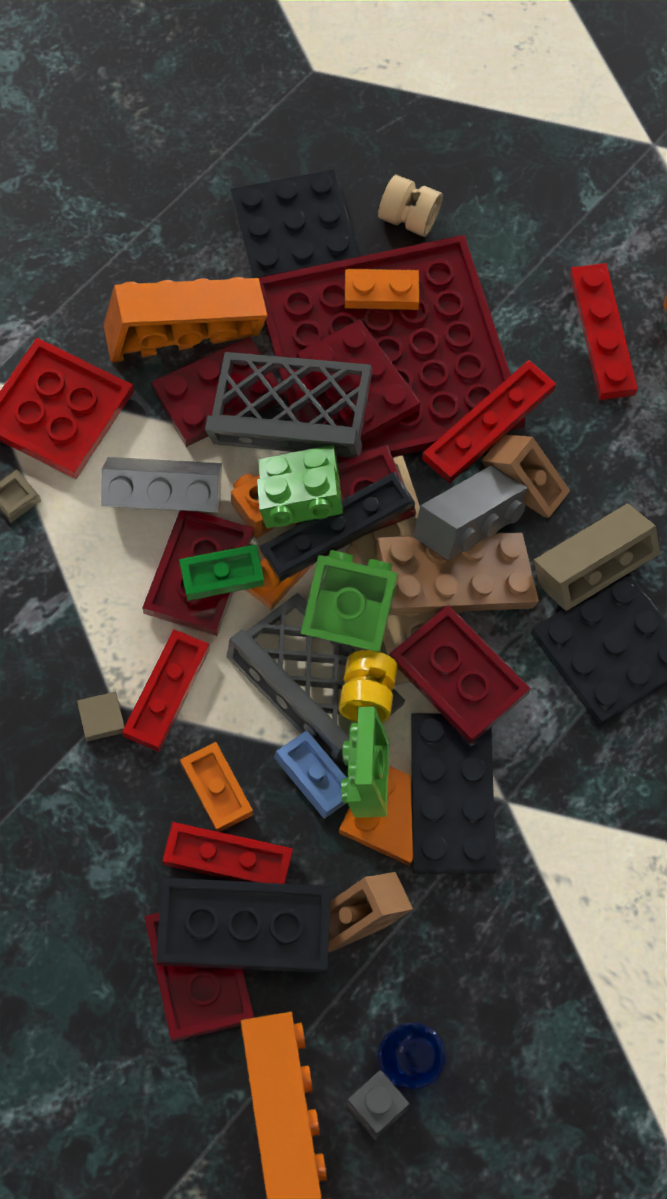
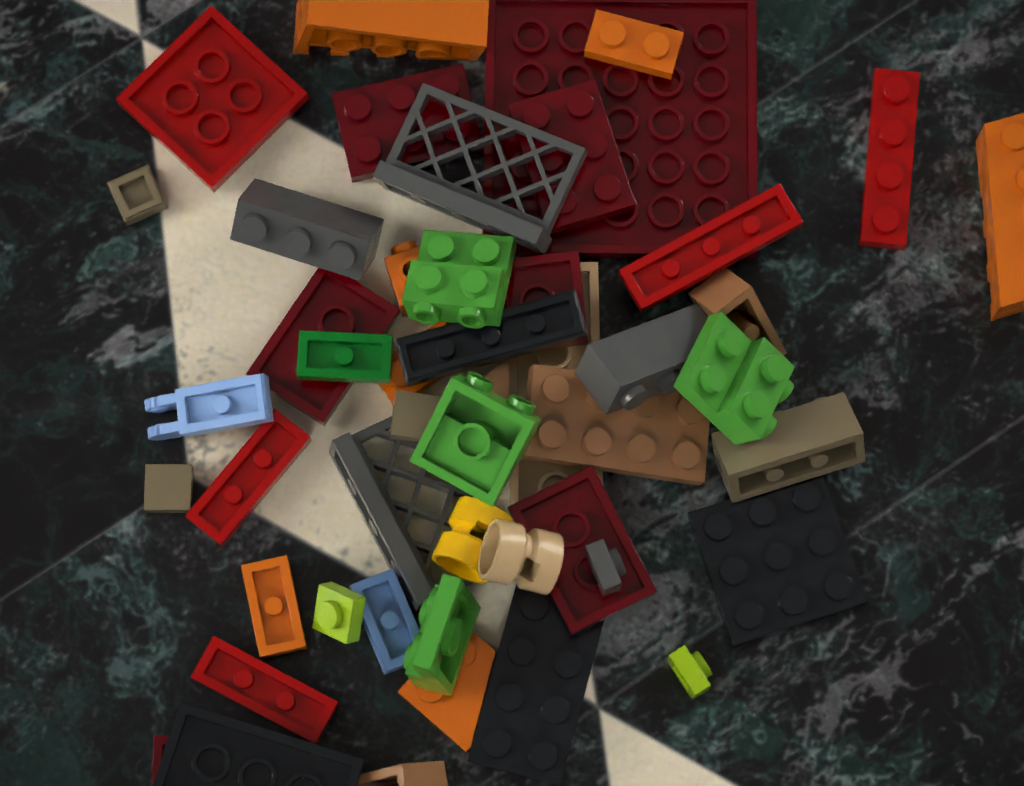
camera: 20 degrees right, 10 degrees up
(120, 641) = (213, 407): none -> light blue hinge
(272, 776) = (339, 612): none -> lime plate
(288, 606) = (411, 414): none -> dark tan tile
(415, 682) = (513, 554): none -> tan wheel
(484, 676) = (605, 566): none -> dark grey plate
(543, 510) = (735, 380): none -> bright green plate
(573, 750) = (691, 671): none -> lime plate

